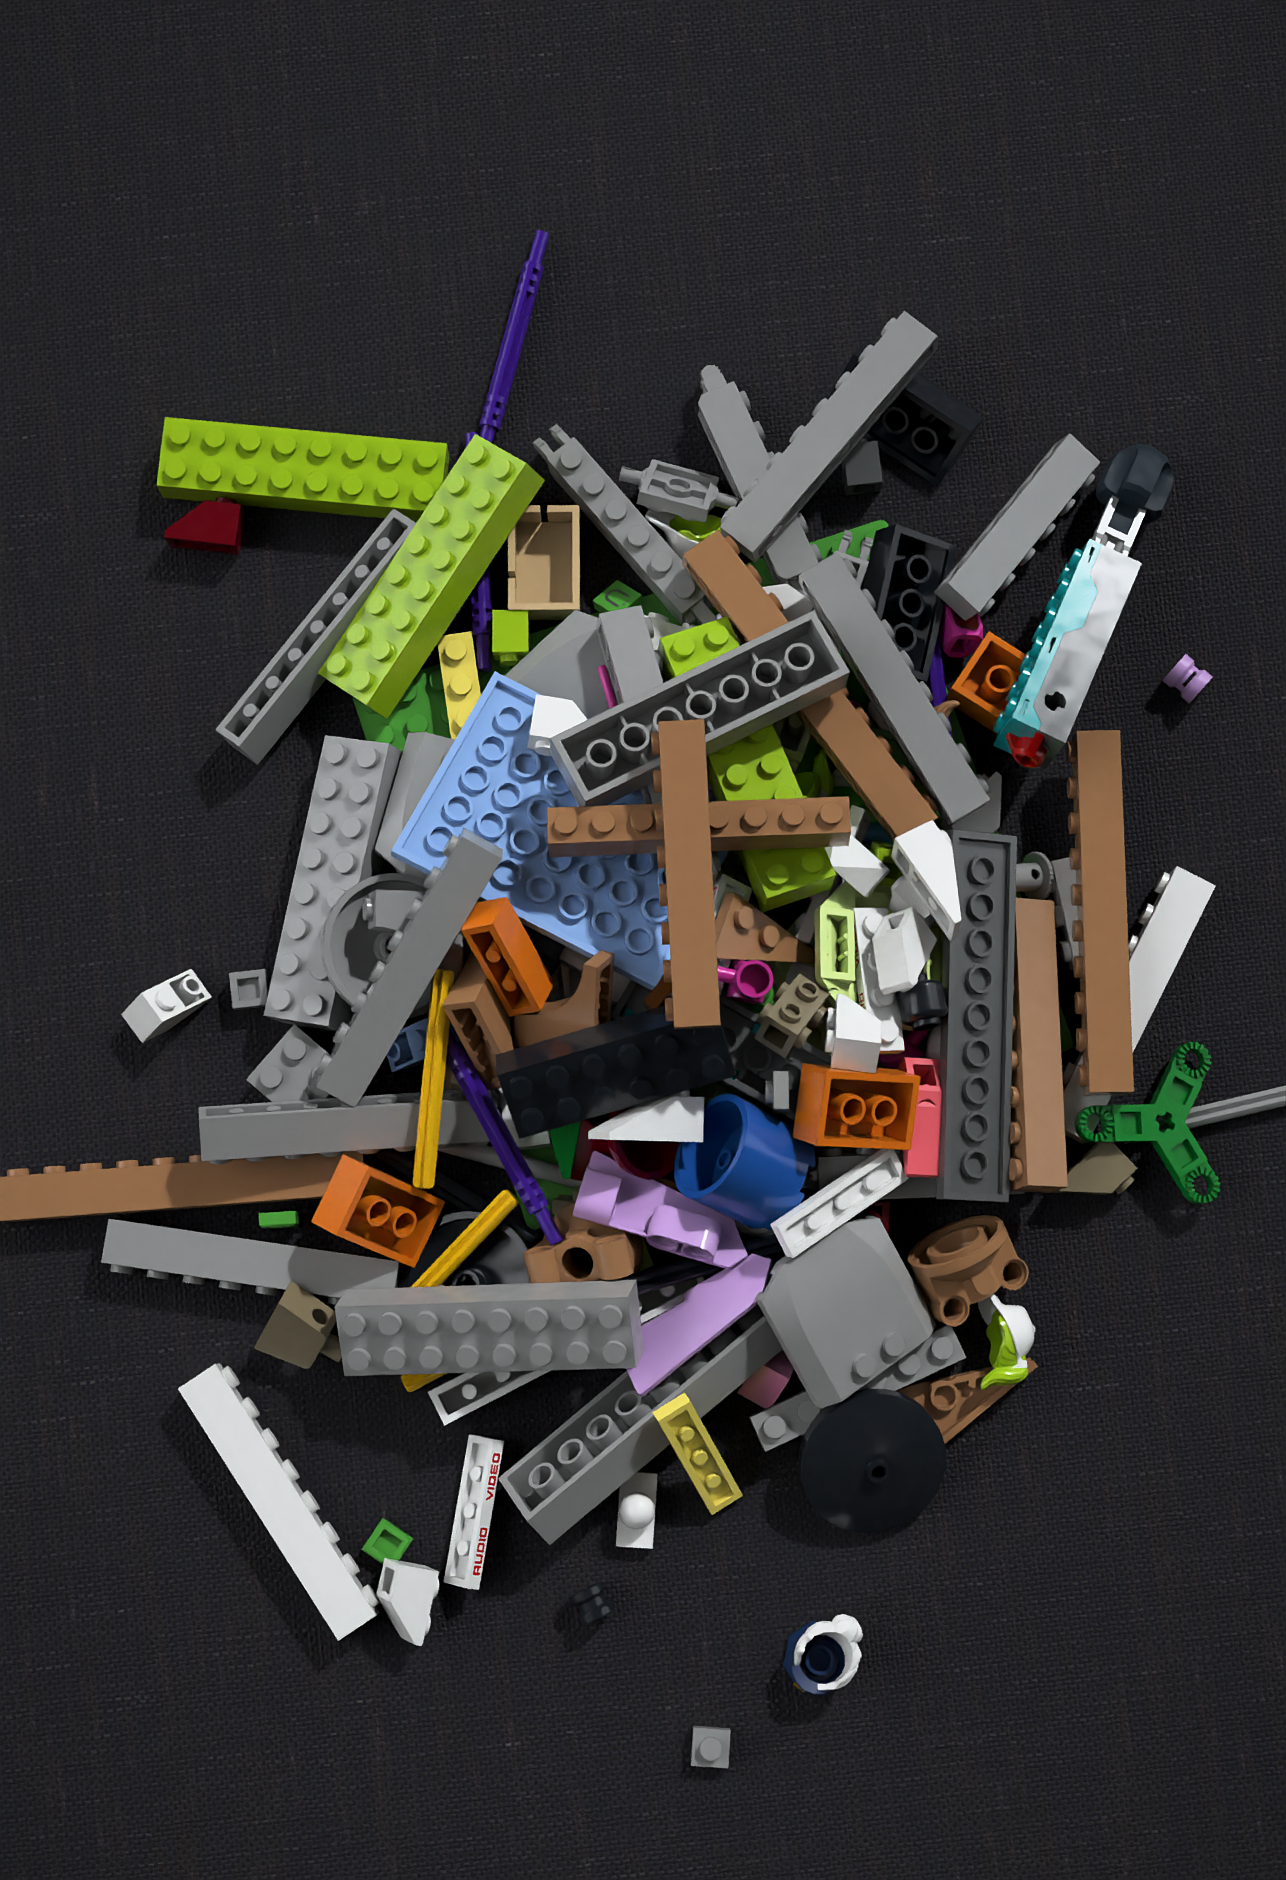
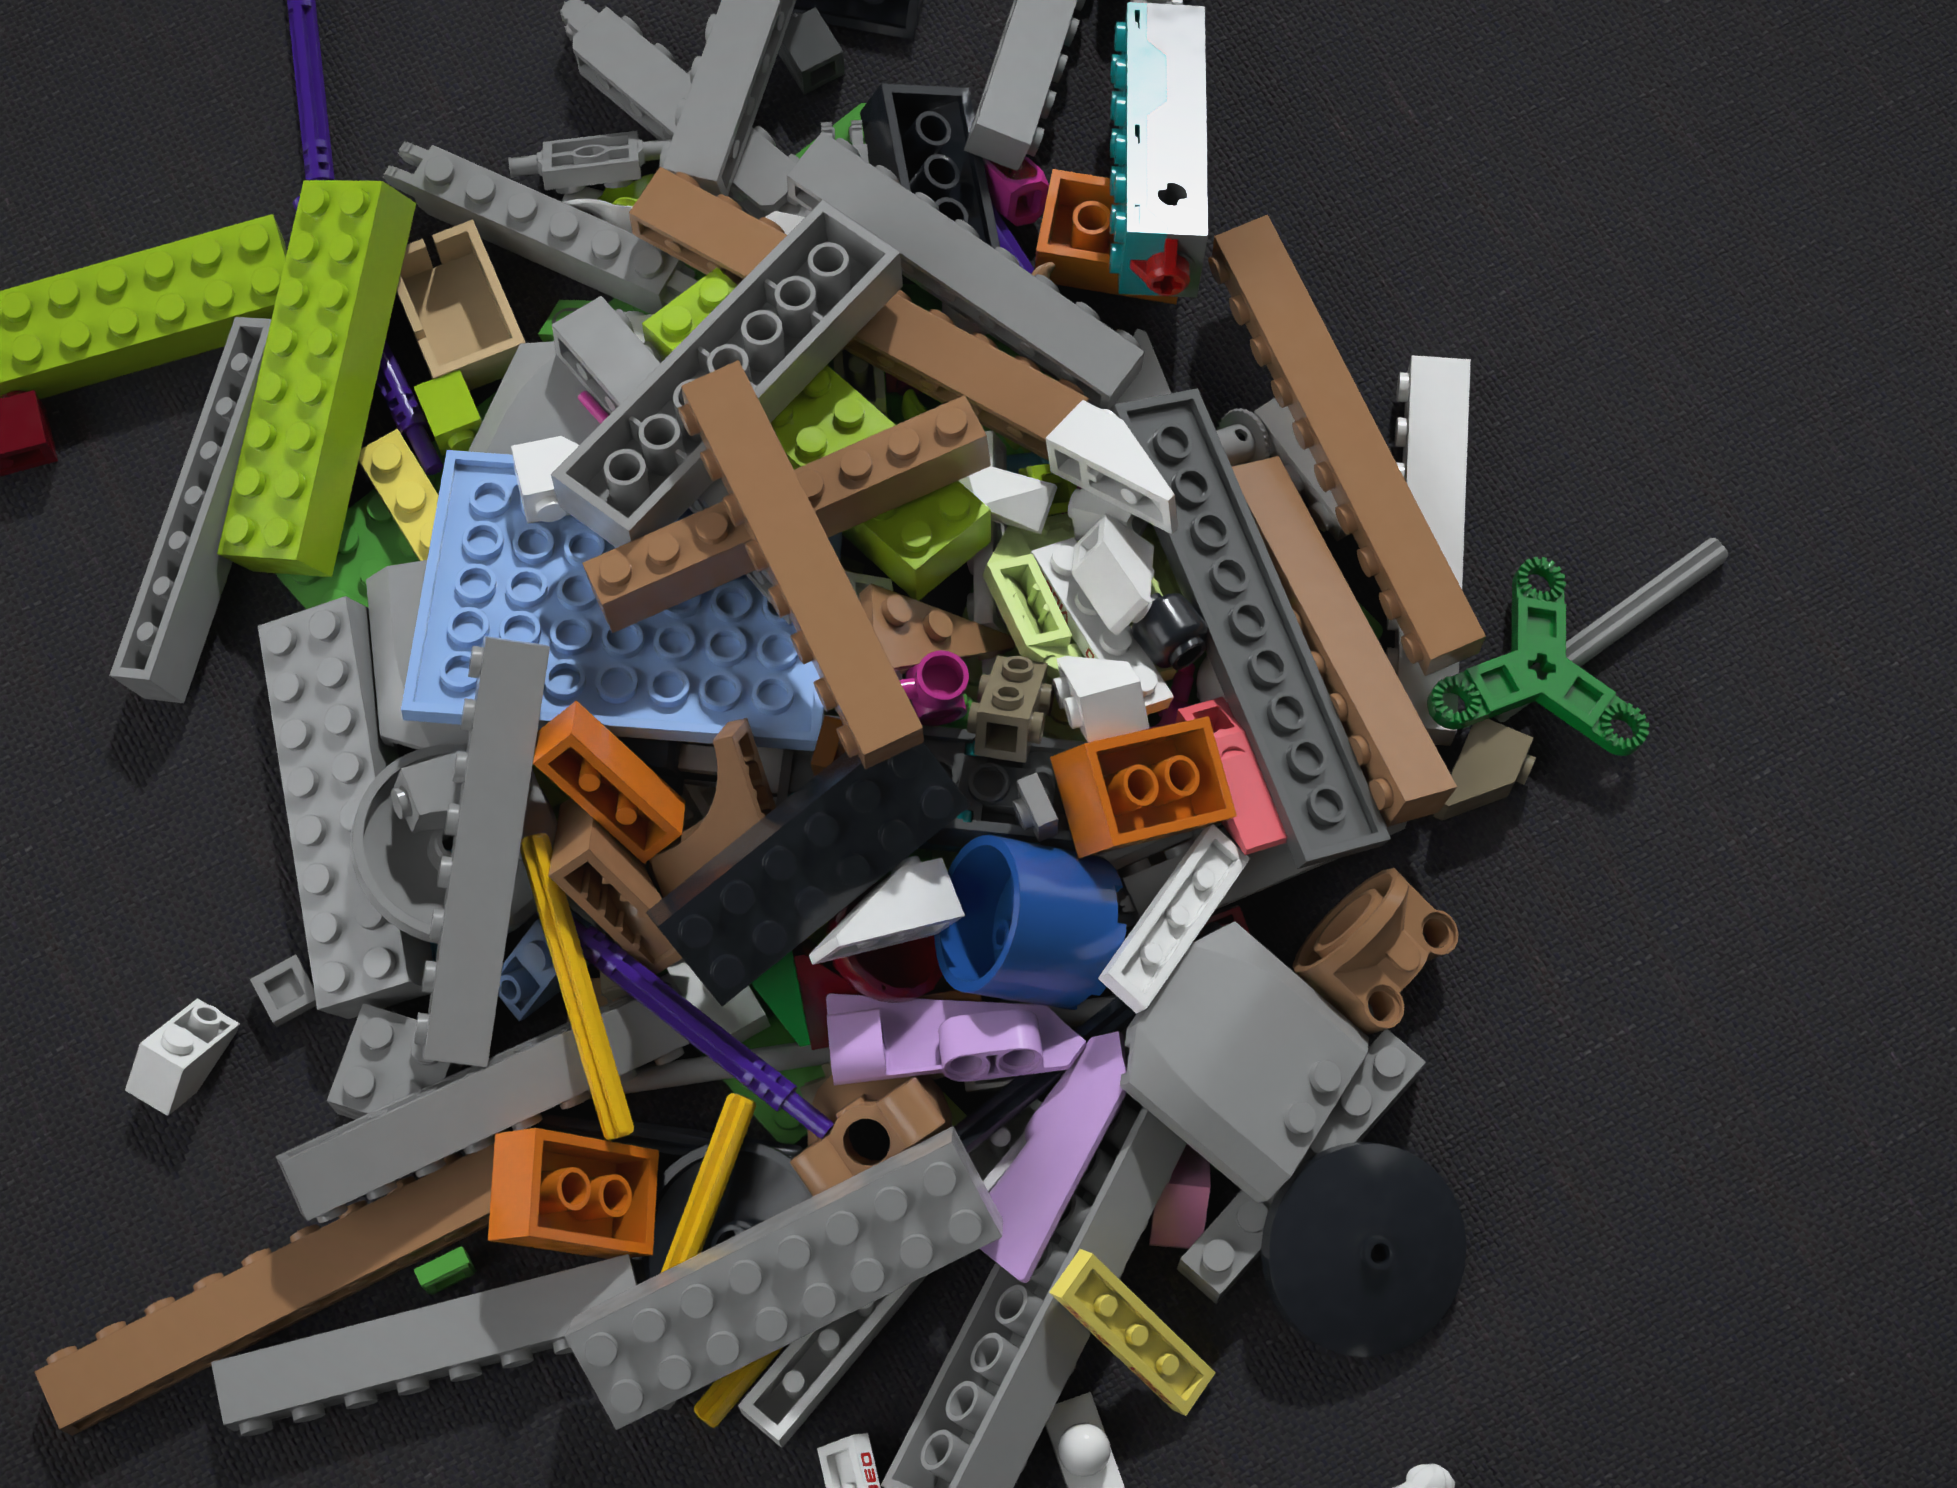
camera: 20 degrees left, 10 degrees down
(300, 1329) = (531, 1400): dark tan torso -> none
(957, 1398) = (1448, 1117): medium nougat wing -> none
(1010, 1339) = (1469, 1018): hair -> none
(1181, 673) = (1311, 134): lavender wheel -> none

